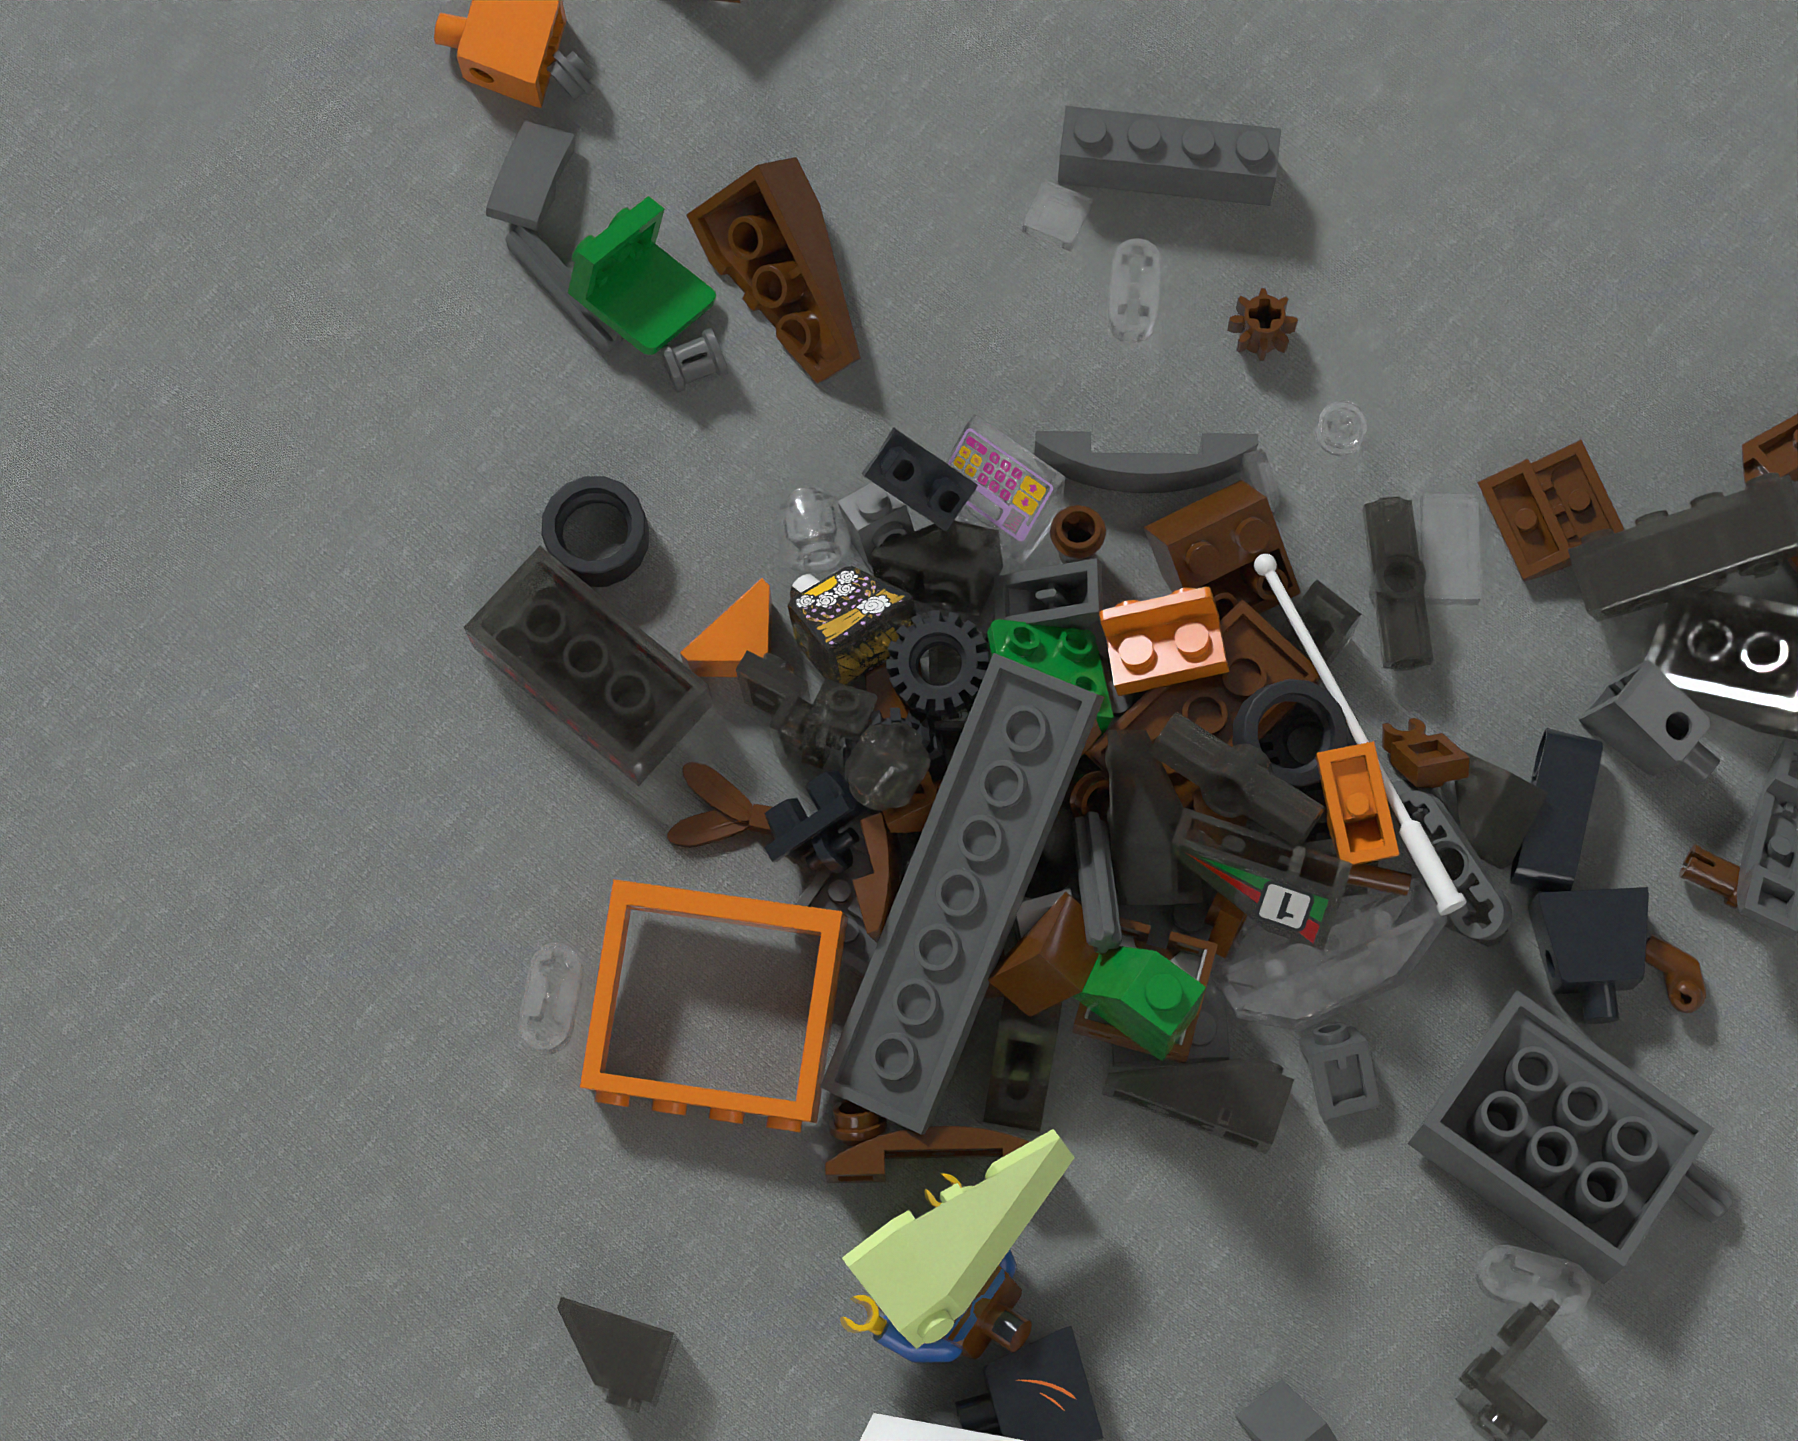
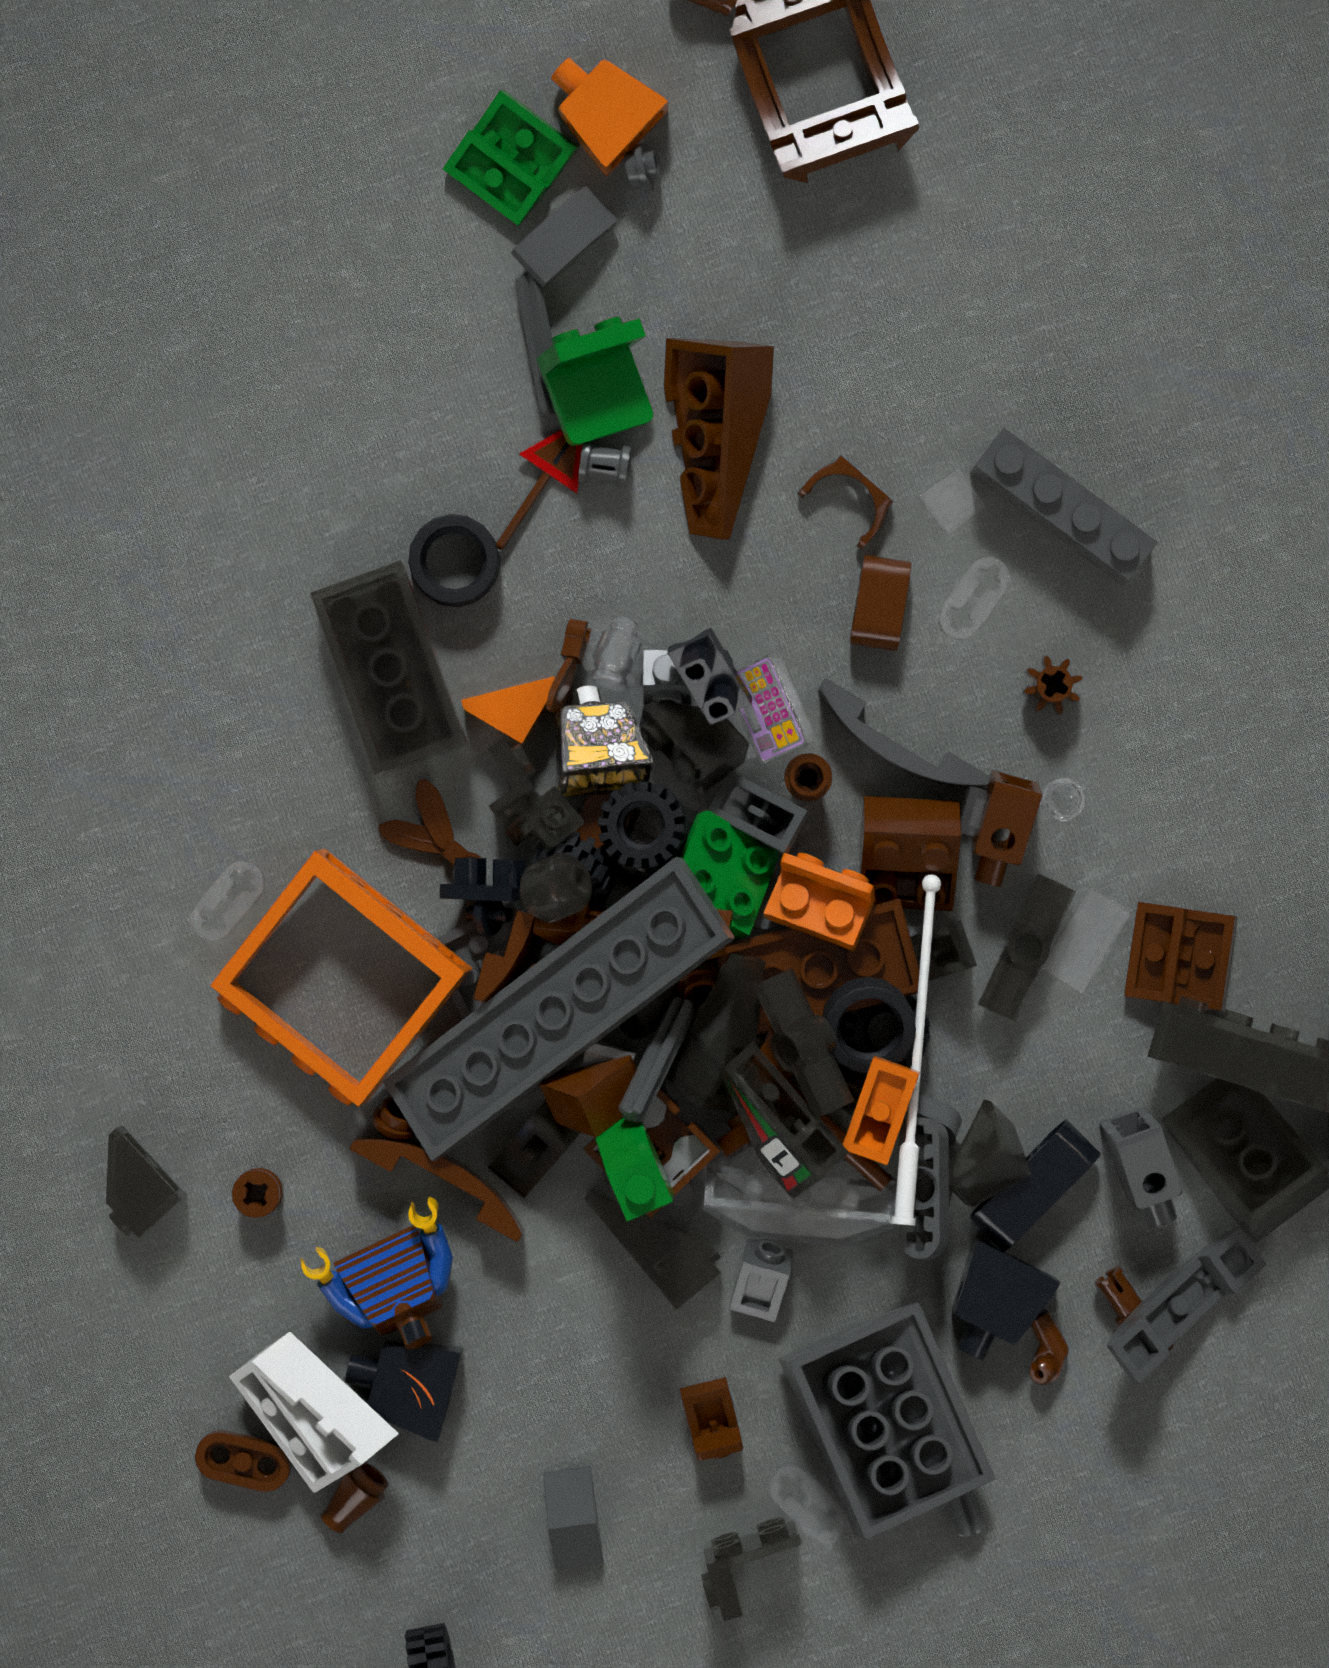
camera: 30 degrees right, 15 degrees up
(436, 135) = (510, 157): none -> green slope
(643, 384) = (556, 460): none -> piece
(759, 1299) = (264, 1187): none -> reddish brown wheel
(768, 556) = (572, 652): none -> reddish brown piece
(936, 1265) = (381, 1268): yellowish green wedge -> none
(938, 239) = (843, 467): none -> reddish brown cap
(1046, 341) = (880, 602): none -> reddish brown beam
(1302, 452) = (1012, 806): none -> reddish brown torso
(1378, 1245) = (712, 1419): none -> reddish brown bracket
(1424, 758) = (959, 1094): reddish brown plate -> none

